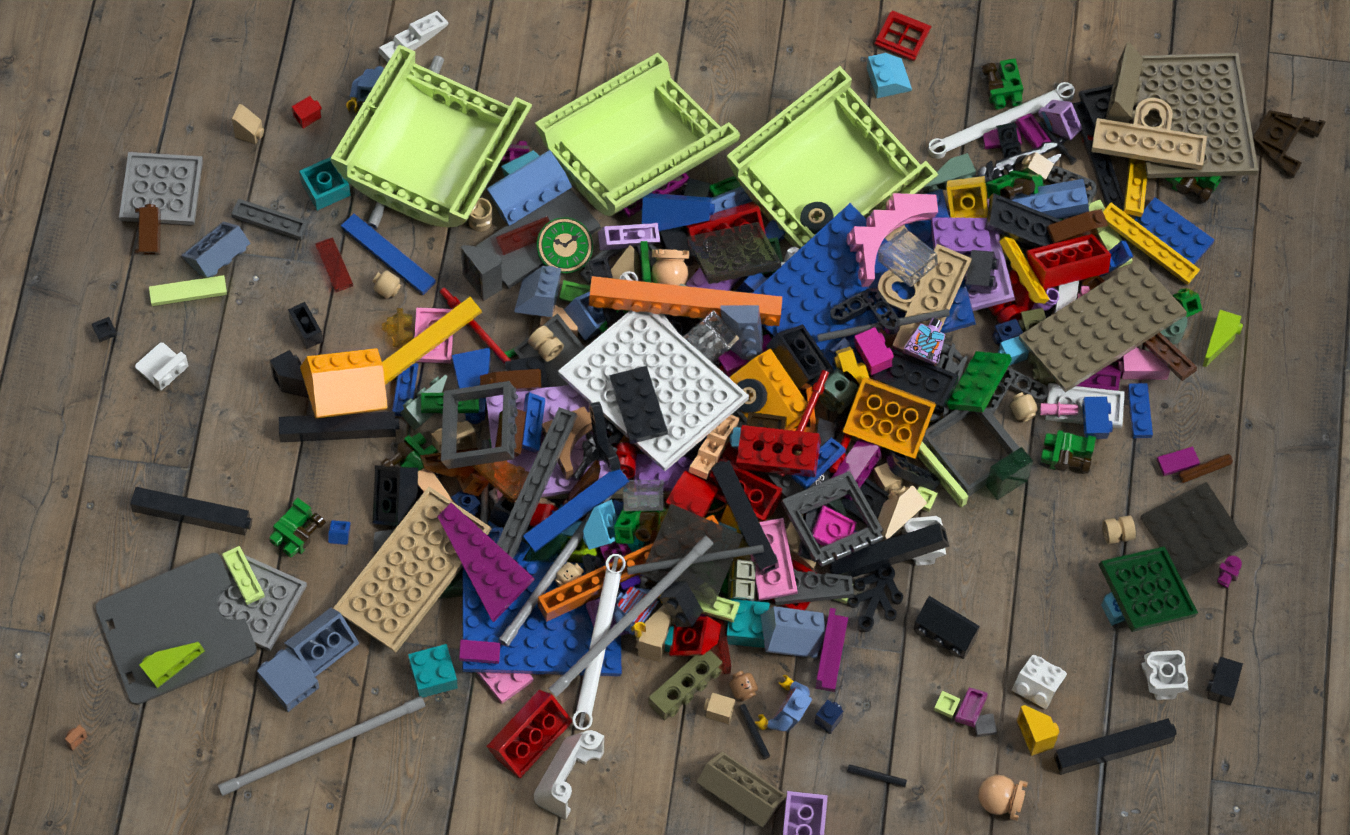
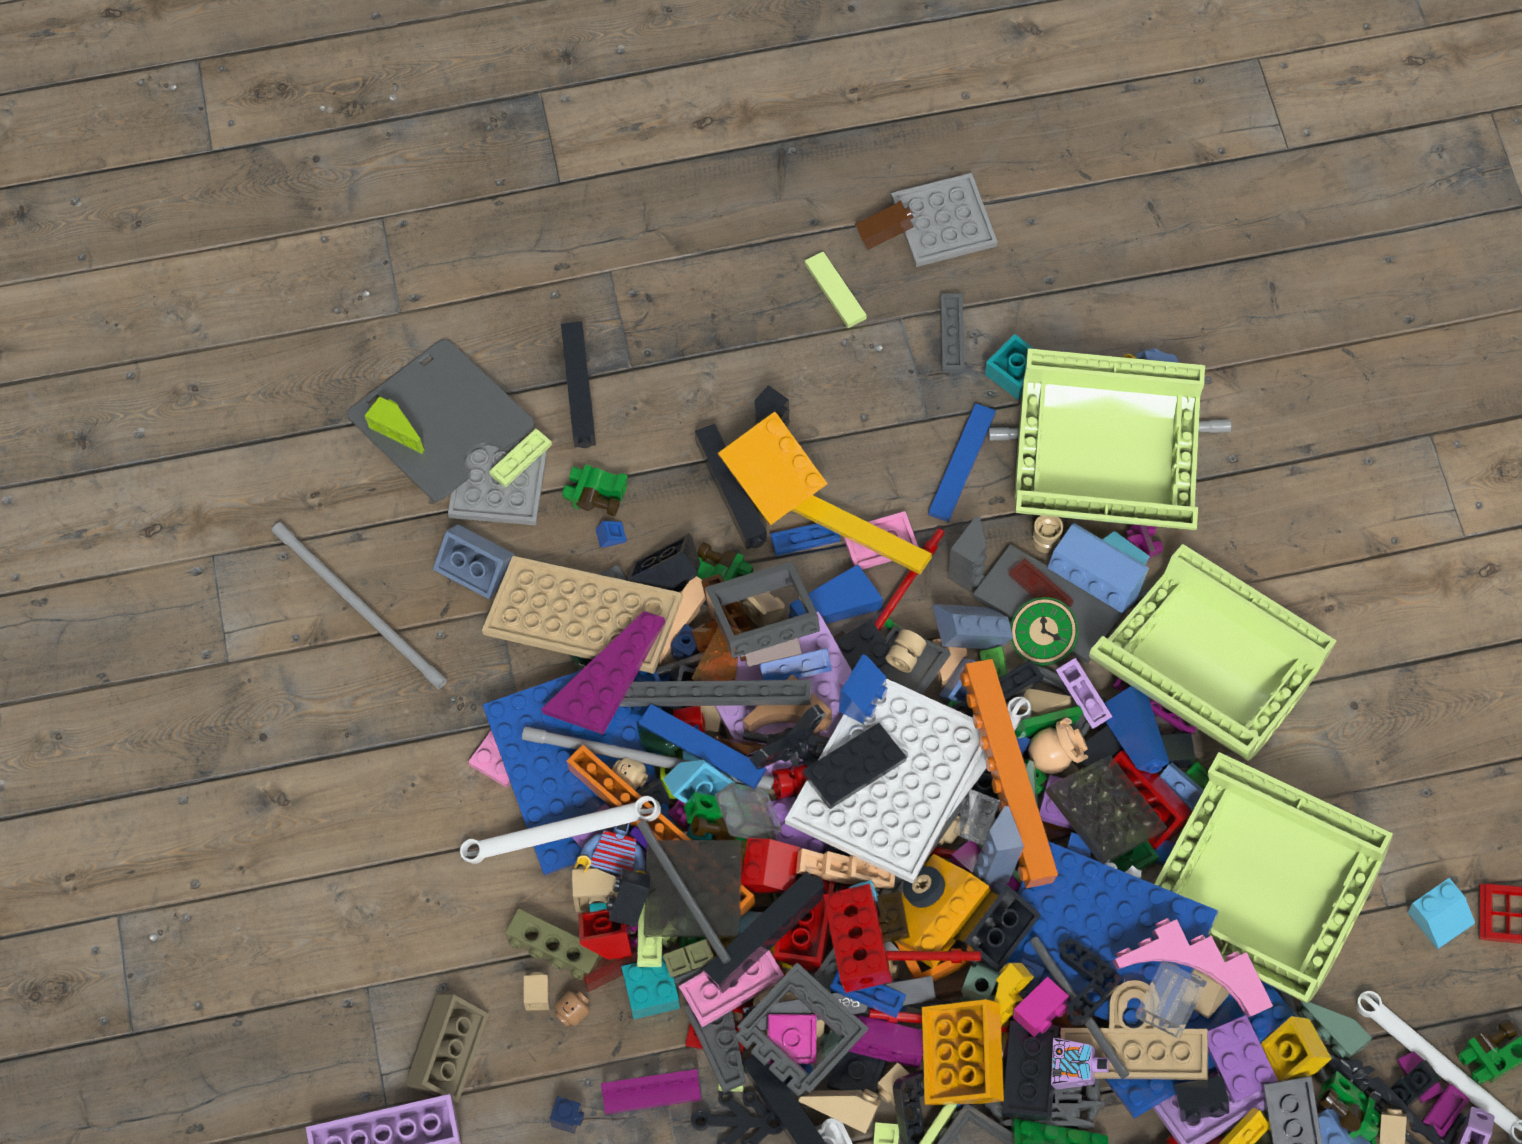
camera: 75 degrees right, 0 degrees up
(75, 737) = (289, 374): nougat plate -> none
(104, 329) = (756, 229): black plate -> none
(162, 365) = (735, 297): white bracket -> none
(216, 249) = (892, 296): sand blue slope -> none
(247, 125) = (1052, 267): tan slope -> none
(287, 678) = (418, 544): sand blue brick -> none
(305, 325) = (835, 410): black brick -> none
(306, 111) = (1099, 320): red brick -> none
(334, 264) = (926, 415): clear red tile -> none
(386, 284) = (921, 472): tan head -> none
(395, 327) = (884, 501): clear yellow hips -> none
(412, 409) = (779, 553): sand green slope -> none
(415, 35) = (1245, 391): white slope -> none
(433, 671) = (477, 679): teal brick -> none
(434, 404) = (790, 555): green tile -> none
(479, 651) = (504, 712): magenta tile -> none
(521, 379) = (841, 629): reddish brown slope -> none
(530, 733) = (438, 802): red slope -> none
(553, 790) = (370, 849): white windscreen -> none
(580, 376) = (862, 690): none -> blue slope
(697, 551) = (687, 886): light grey piece -> none
(754, 731) = (523, 1040): black bar -> none
(791, 708) = (562, 1069): medium blue torso -> none
(793, 631) = (650, 1037): sand blue slope -> none
(810, 211) = (1206, 881): black bush -> none

